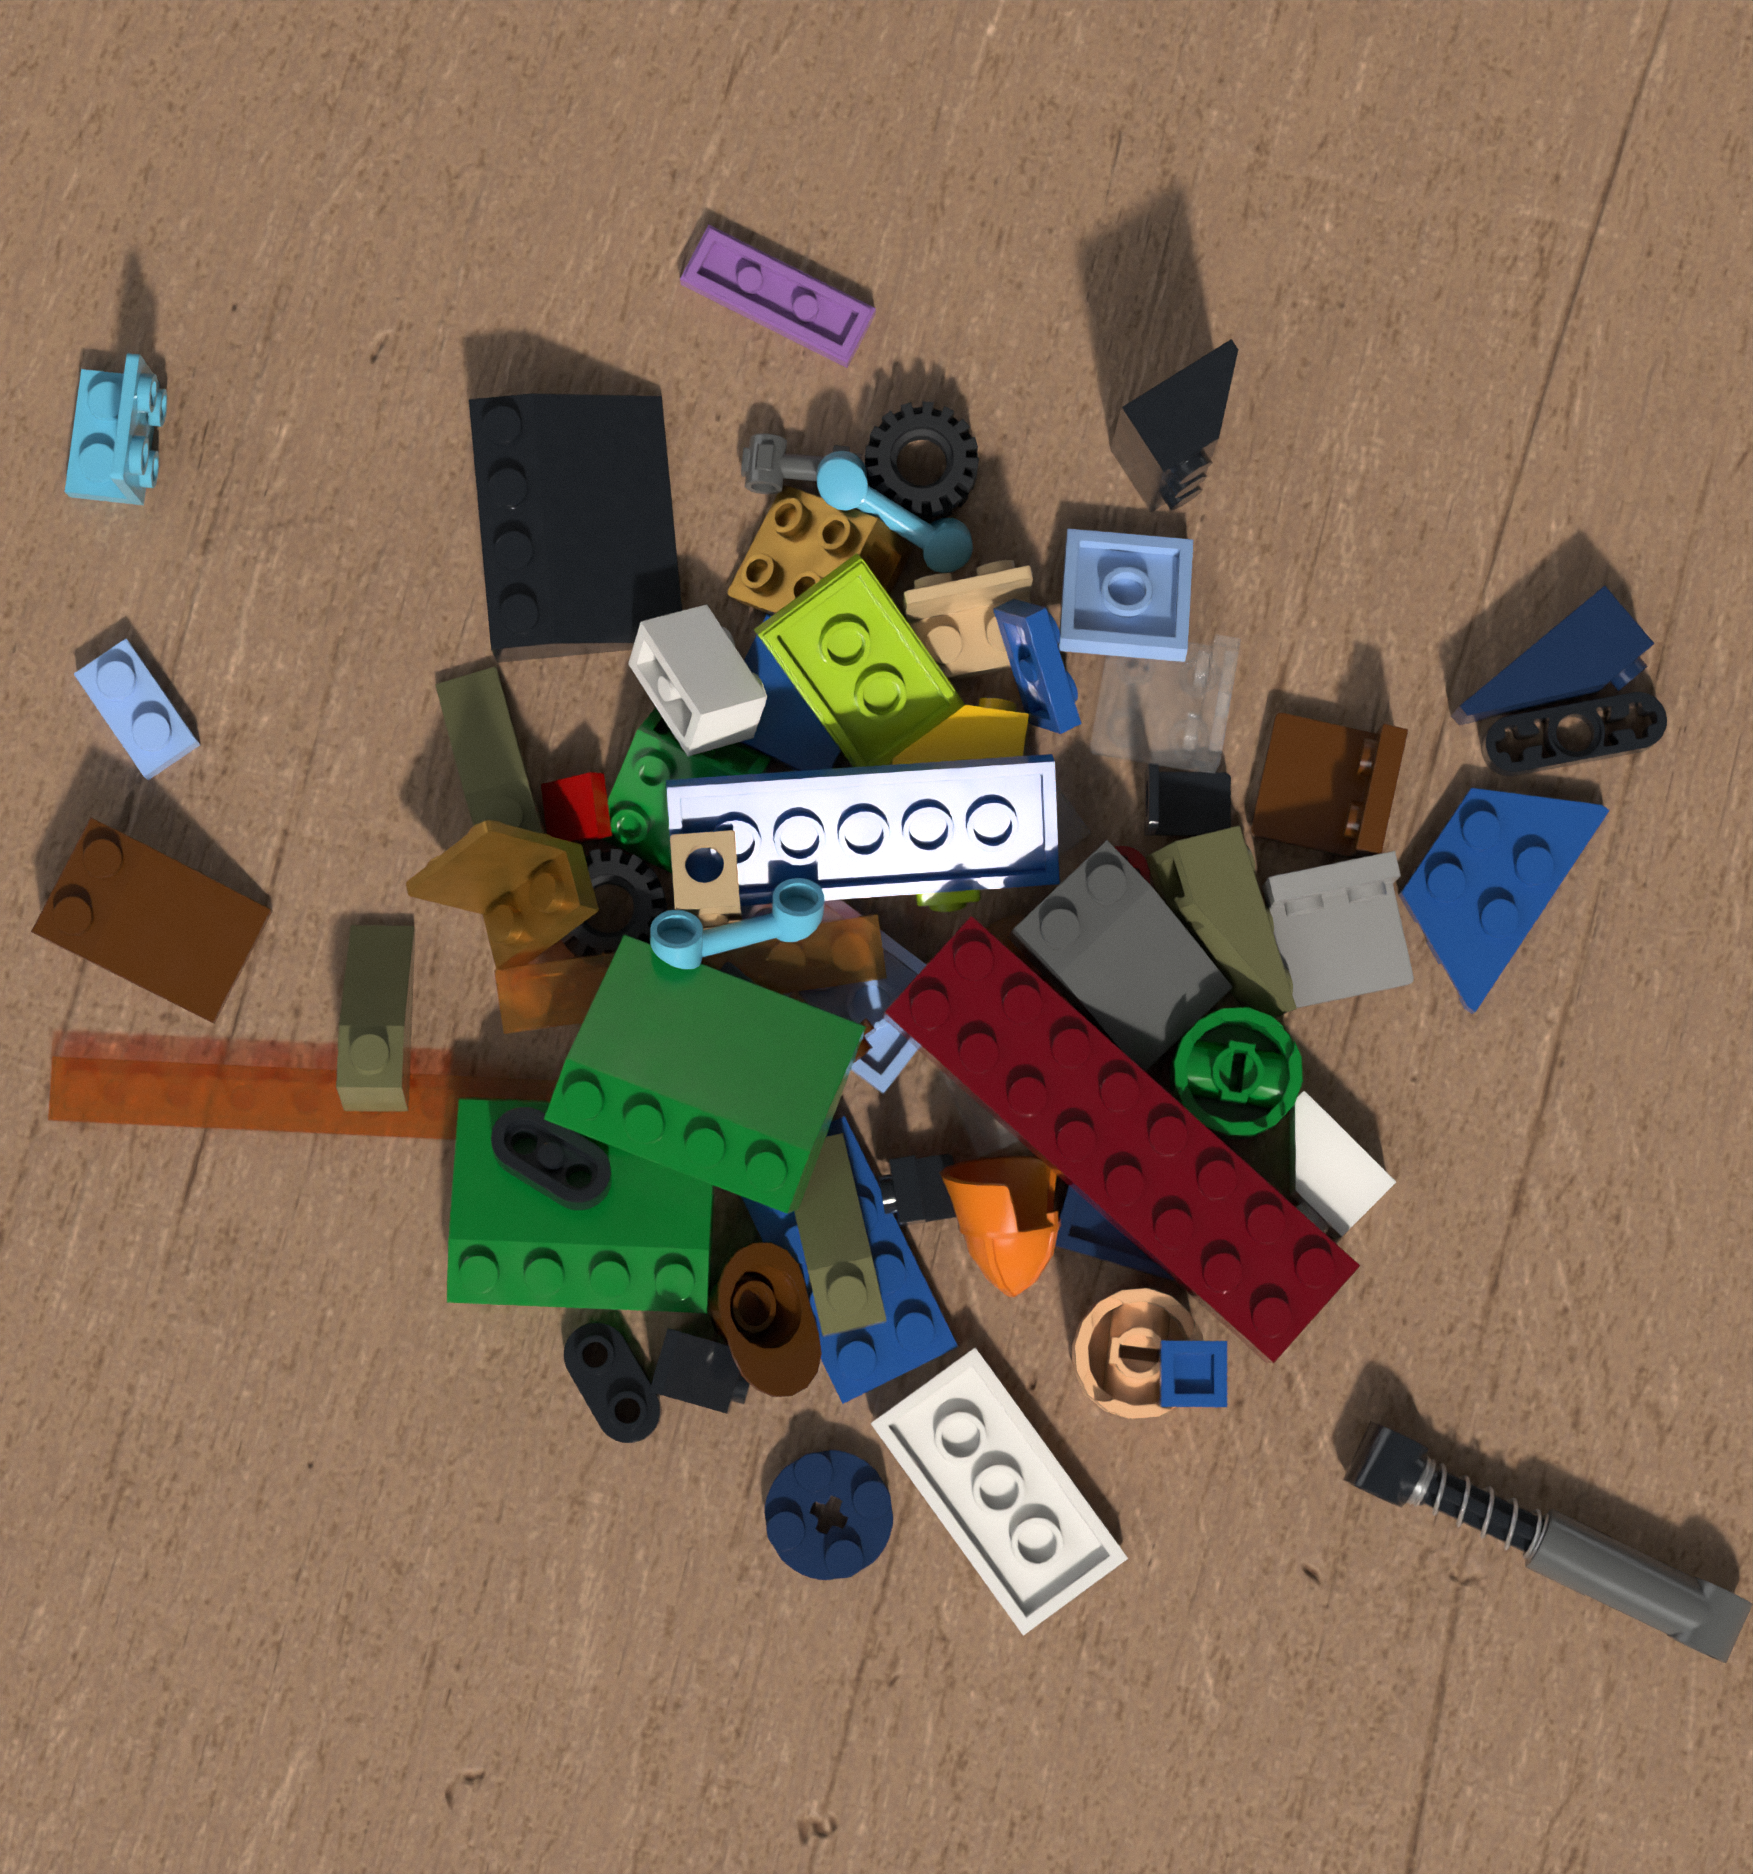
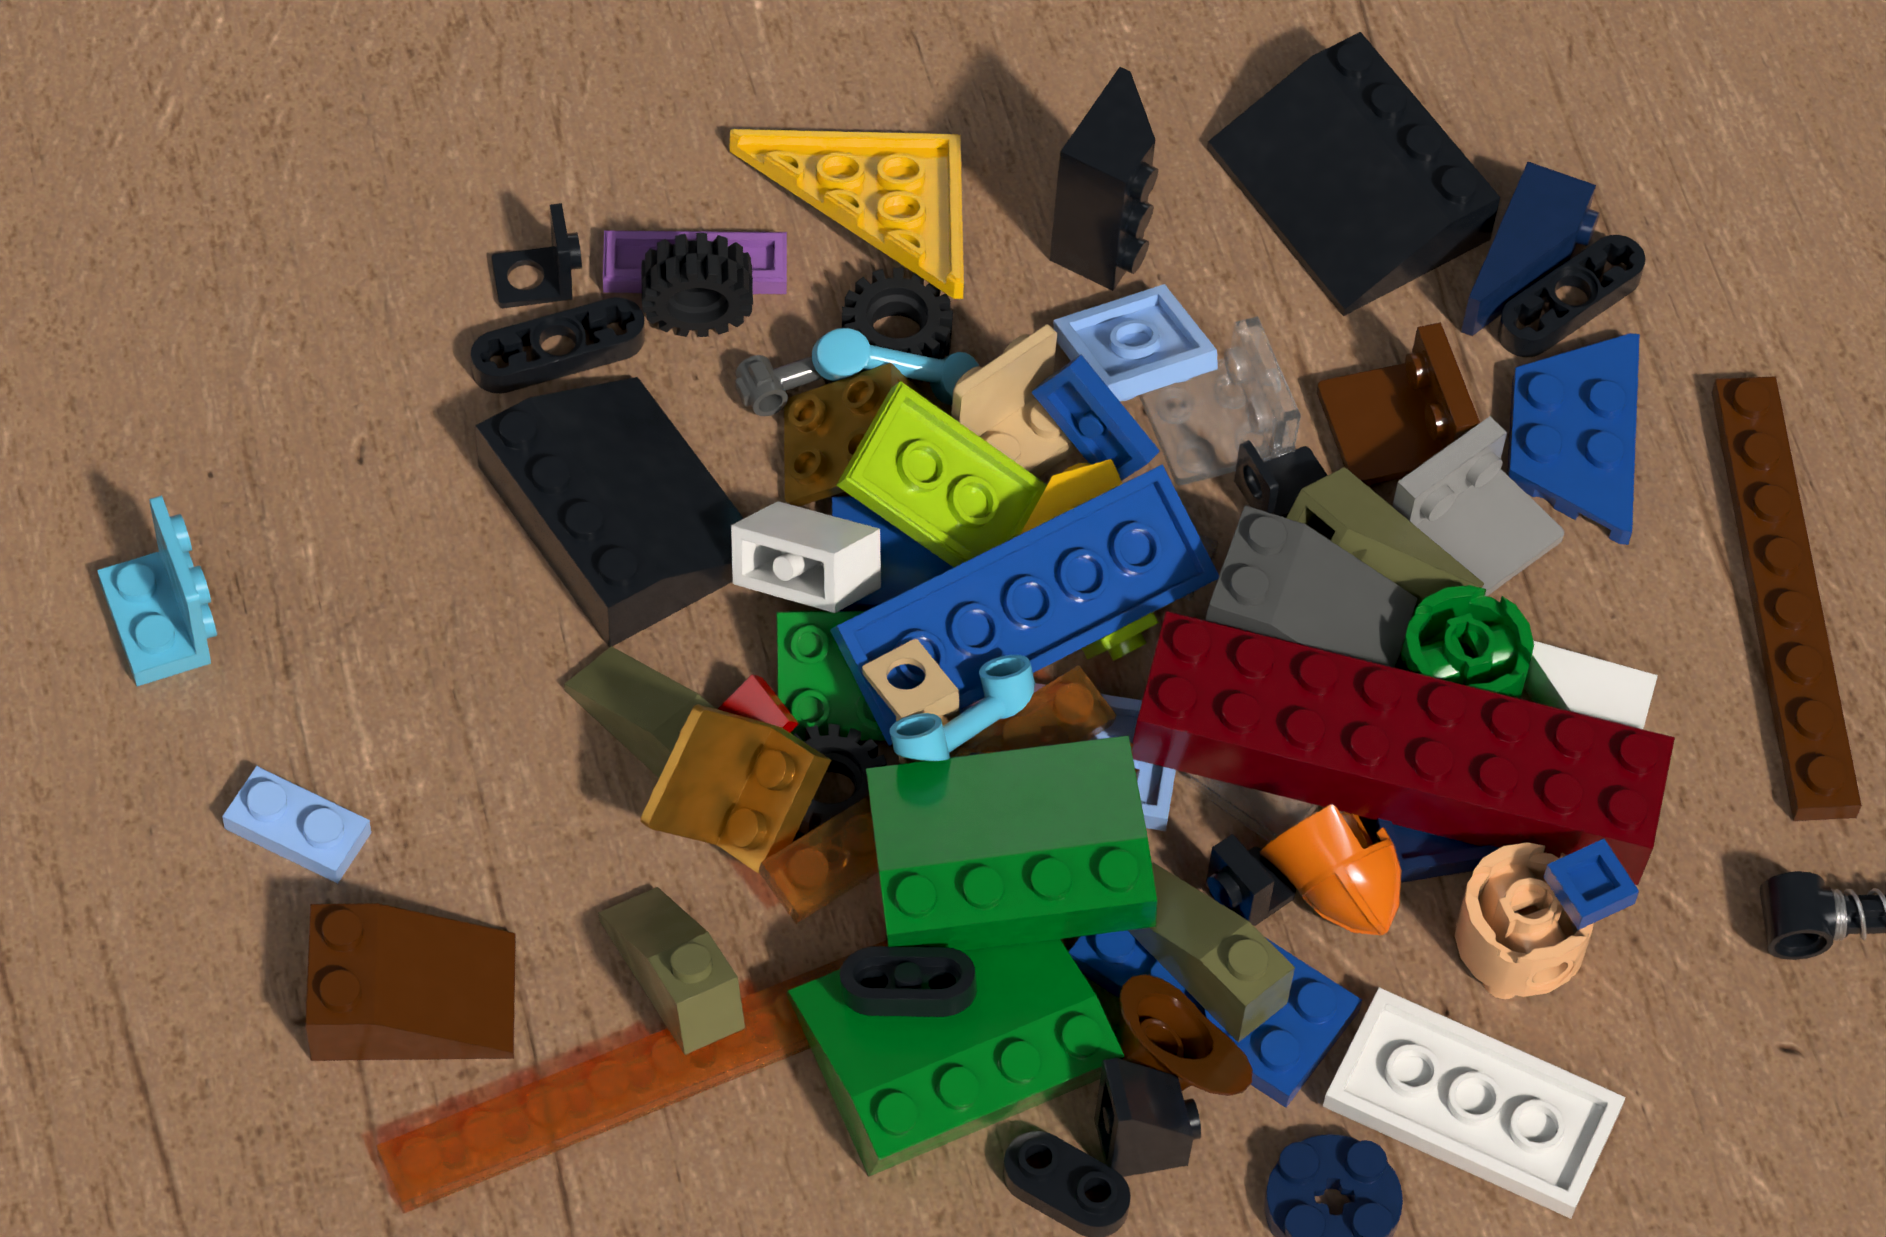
camera: 30 degrees left, 25 degrees down
(651, 240) = (552, 261): none -> black bracket
(653, 320) = (546, 367): none -> black beam
(752, 338) = (697, 285): none -> black tyre
(987, 305) = (880, 185): none -> yellow tile
(1439, 508) = (1356, 175): none -> black slope
(1580, 1140) = (1785, 600): none -> reddish brown plate

